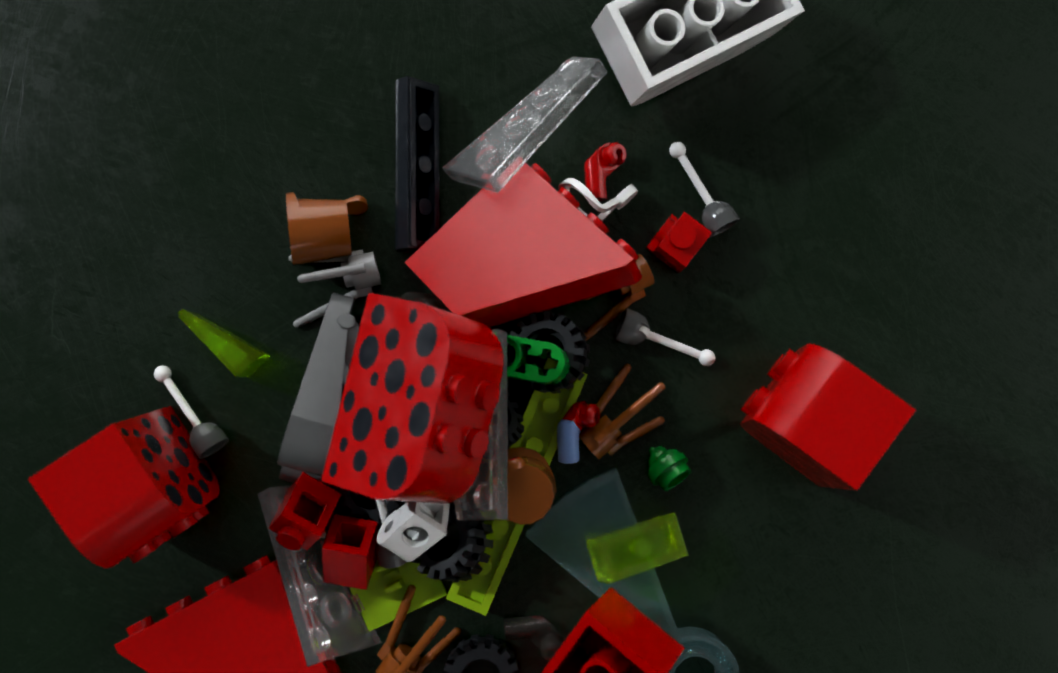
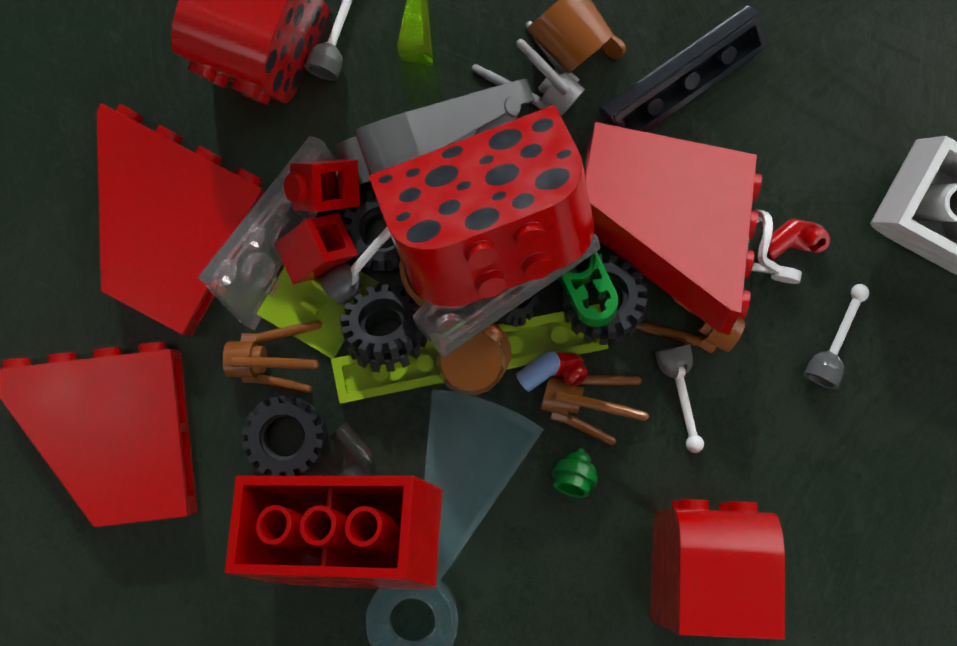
camera: 50 degrees right, 0 degrees up
(414, 528) = (376, 287): white leg -> none
(518, 134) = (777, 143): clear wing -> none
(636, 548) = (489, 492): clear neon green slope -> none
(678, 241) = (780, 347): red brick -> none

